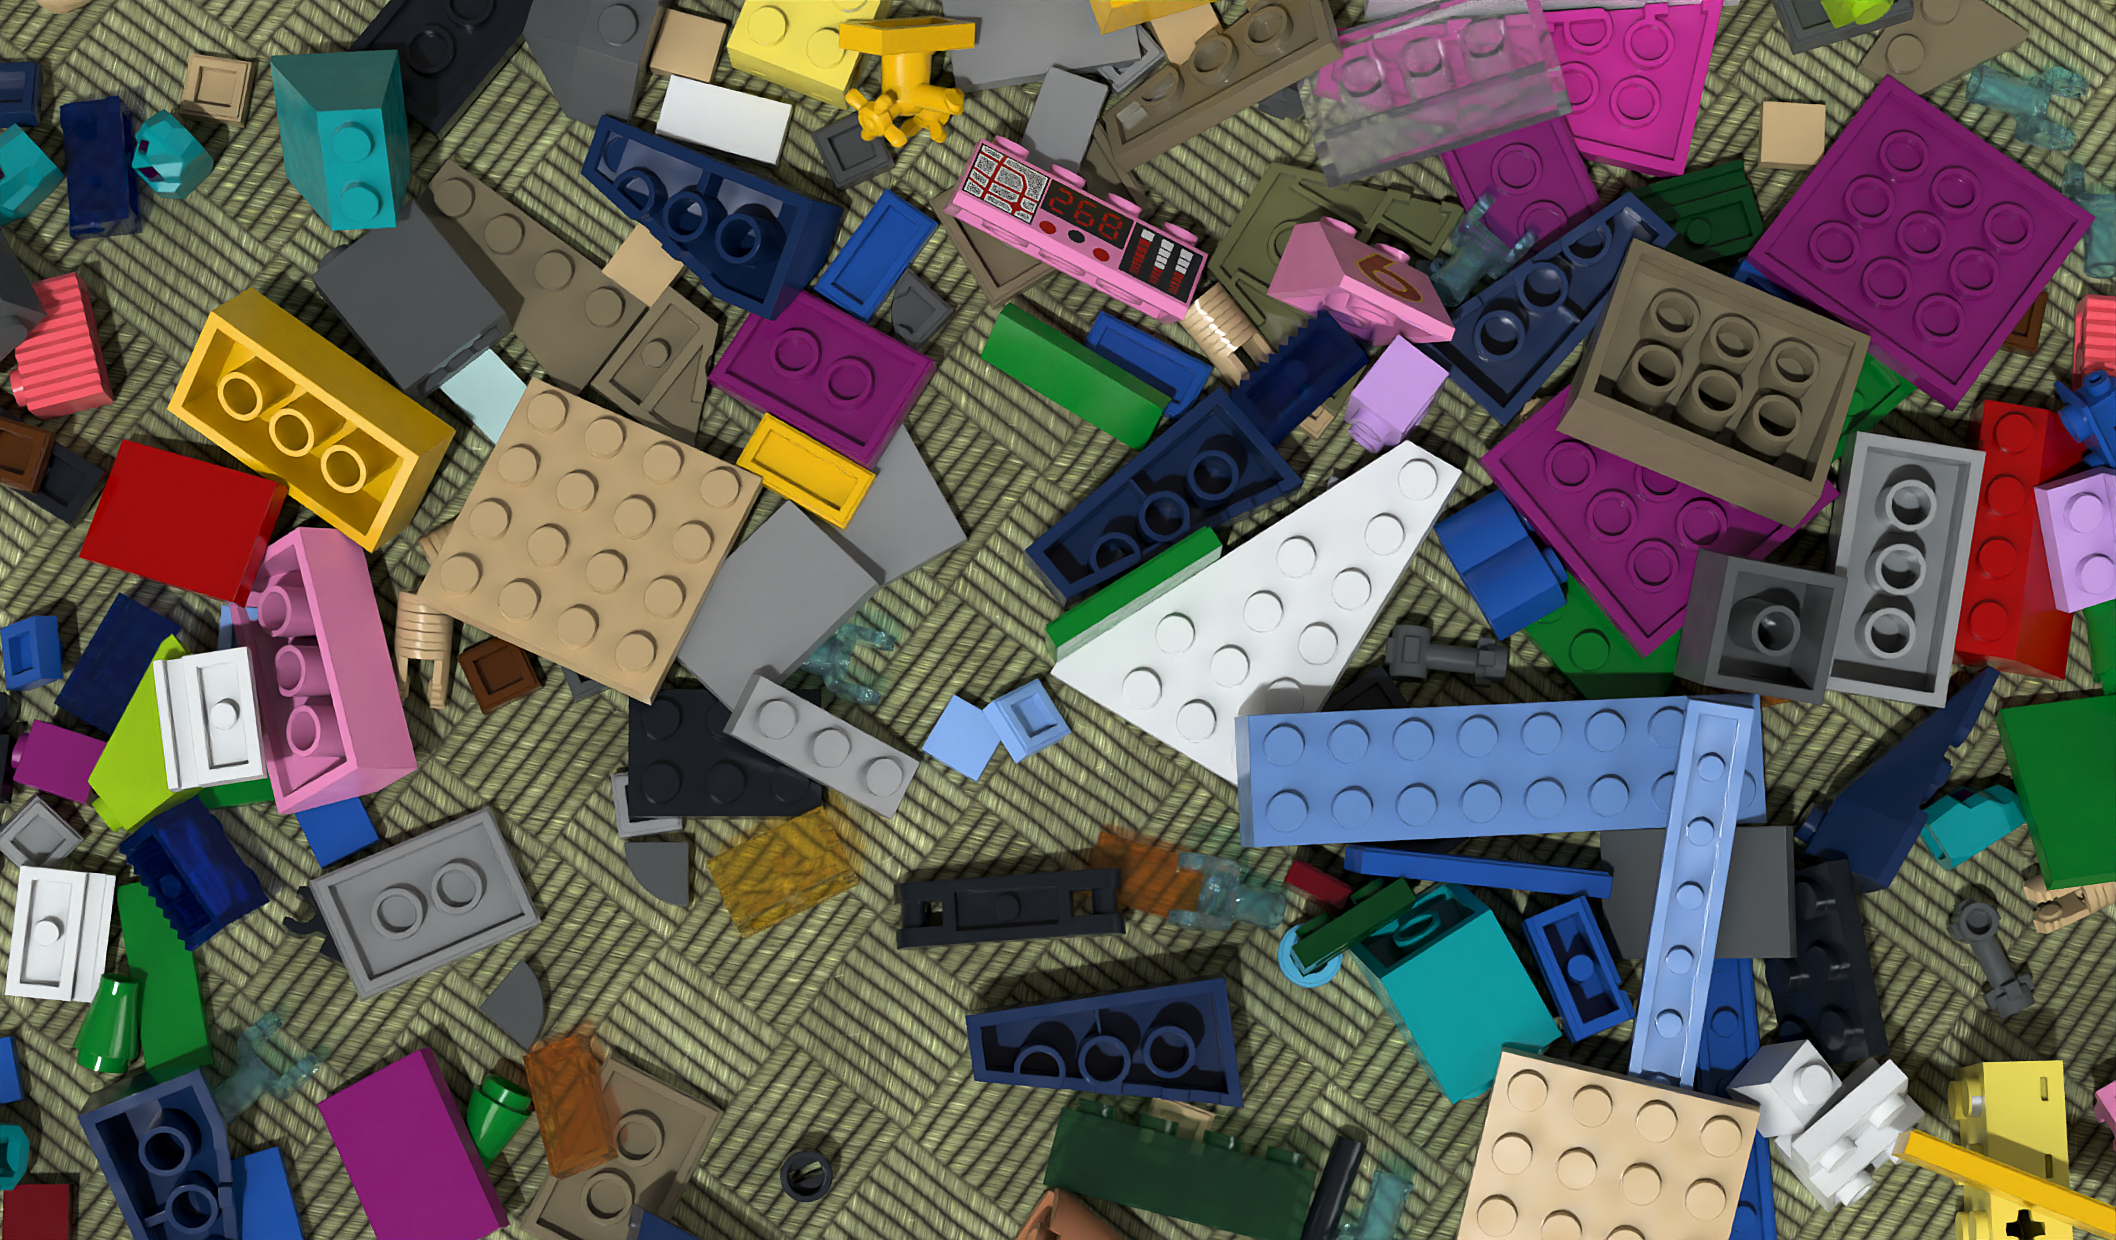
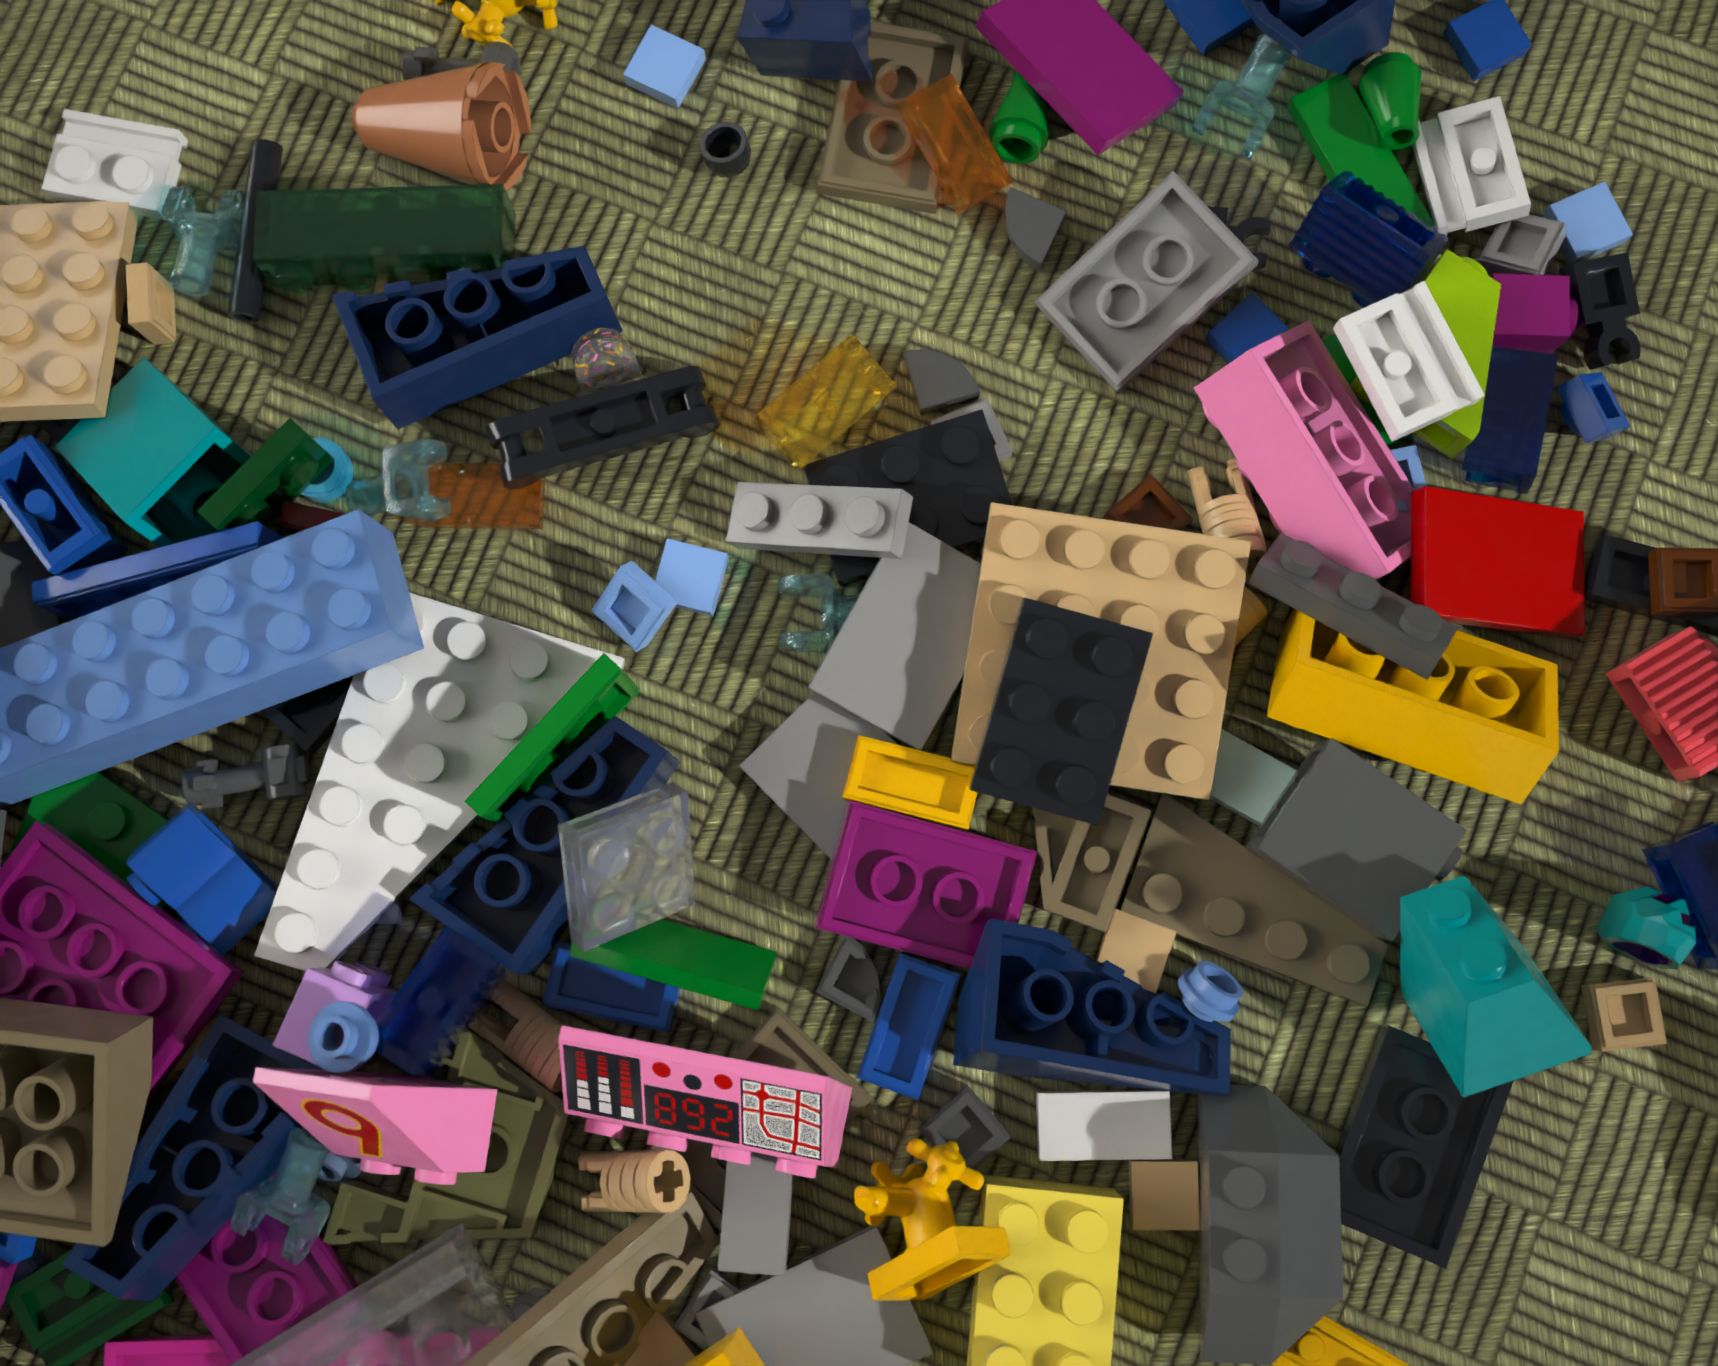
camera: 170 degrees right, 0 degrees up
(341, 507) = (1353, 605): none -> dark grey plate
(588, 208) = (1210, 992): none -> medium blue plate
(646, 486) = (1060, 711): none -> black plate
(991, 977) = (603, 360): none -> clear tile
(1091, 458) = (627, 865): none -> clear plate
(1163, 182) = (636, 1181): none -> tan hinge
(1359, 359) = (359, 1041): none -> medium blue plate
(1439, 1173) = (150, 303): none -> tan tile

